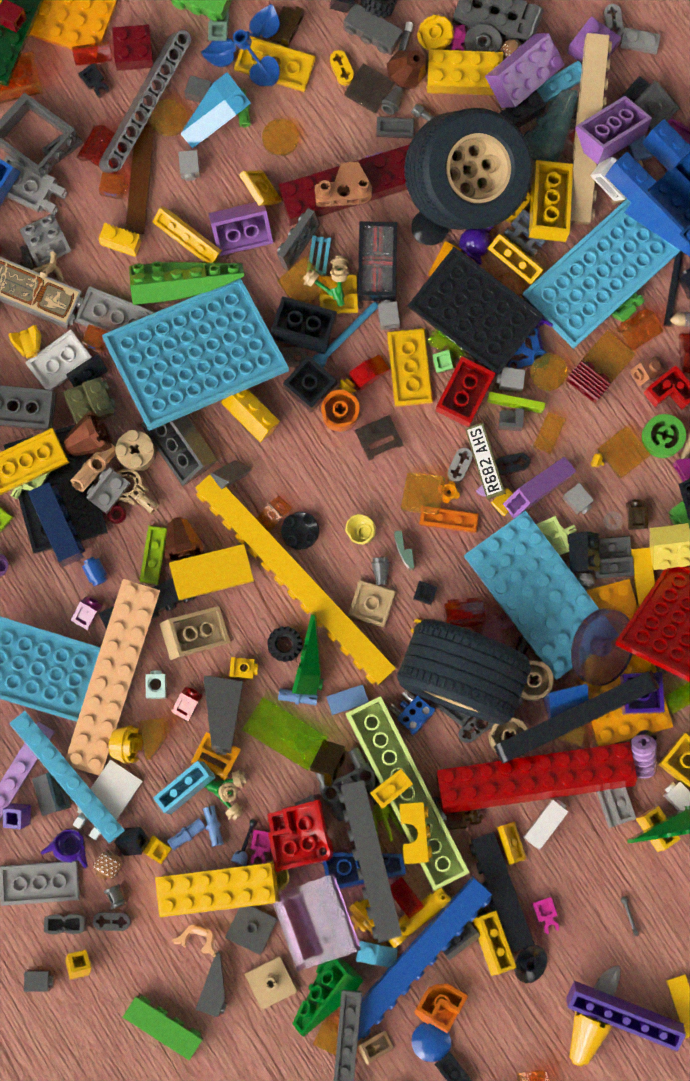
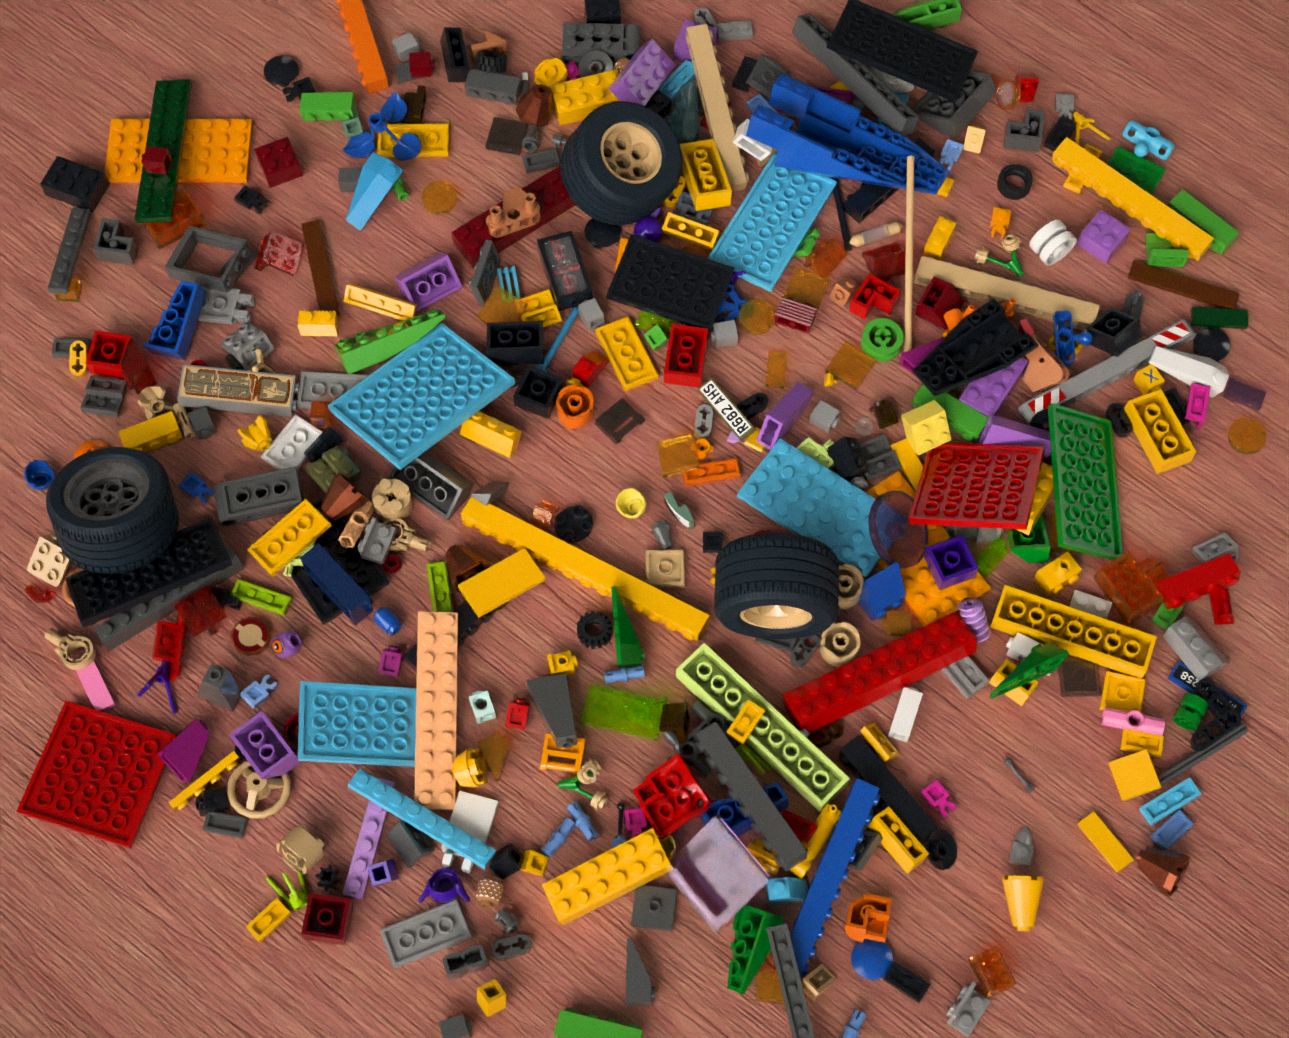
camera: 15 degrees left, 15 degrees down
(92, 53) = (245, 176): clear red tile -> none
(112, 186) = (296, 281): clear orange brick -> none
(152, 96) = (304, 202): dark grey beam -> none
(168, 118) = (330, 210): clear yellow tile -> none
(184, 787) = (542, 790): medium azure brick -> none
(189, 165) = (362, 243): light grey brick -> none
(194, 632) = (502, 646): tan slope -> none
(194, 929) = (596, 927): light nougat helmet -> none
(260, 187) = (435, 240): yellow tile -> none
(270, 983) = (692, 954): tan tile -> none
(338, 69) = (473, 128): yellow beam -> none
(339, 275) = (530, 285): tan plant -> none
(347, 699) = (667, 665): medium blue tile -> none
(415, 815) = (778, 739): yellow arch -> none
(417, 720) = (748, 655): blue piece -> none
(511, 420) = (739, 369): dark grey panel -> none
(515, 402) = (735, 352): lime tile -> none
(576, 717) = (897, 599): black beam -> none
(612, 129) = (738, 99): medium lavender slope -> none
(625, 1015) = (1052, 865): dark purple brick -> none

